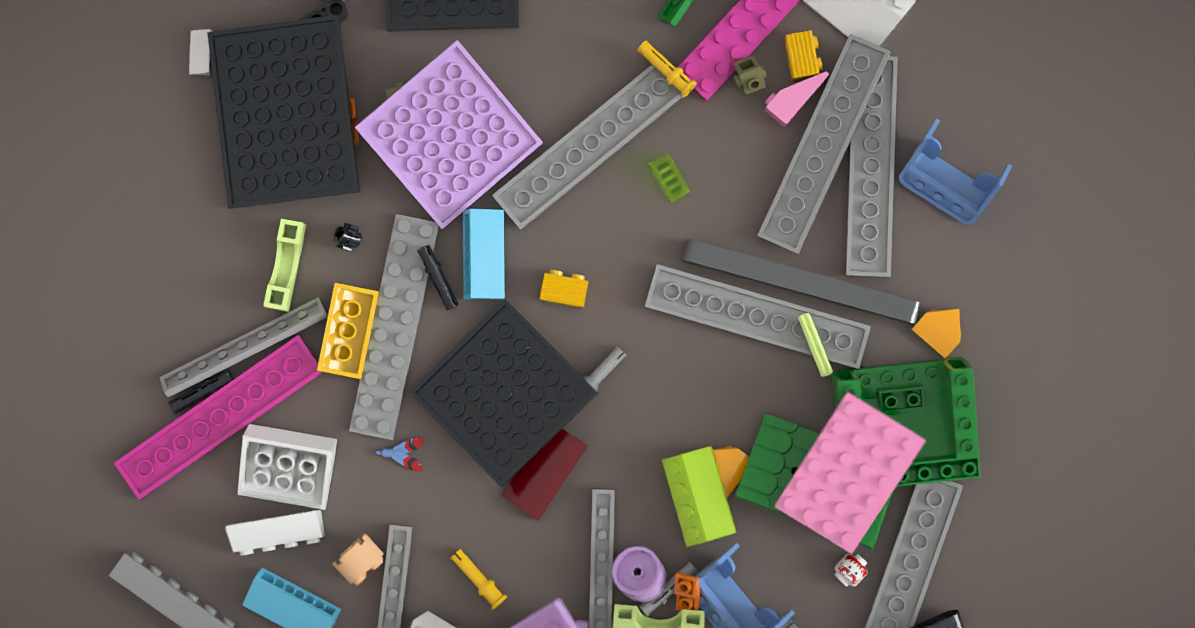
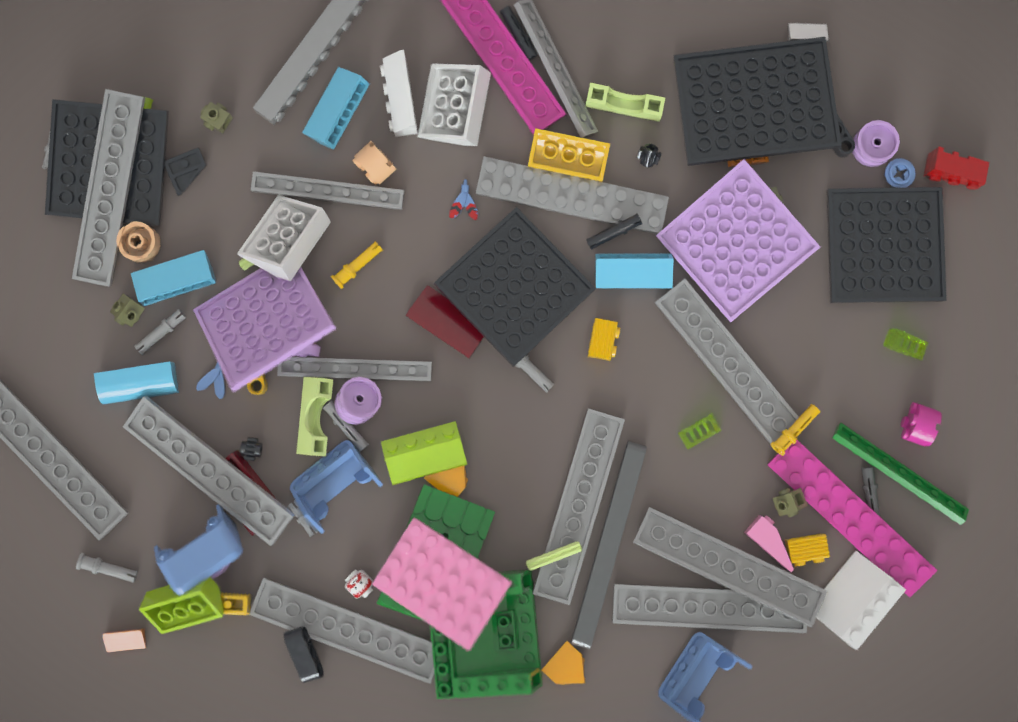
camera: 90 degrees right, 0 degrees up
(687, 591) = (342, 442): orange slope -> none

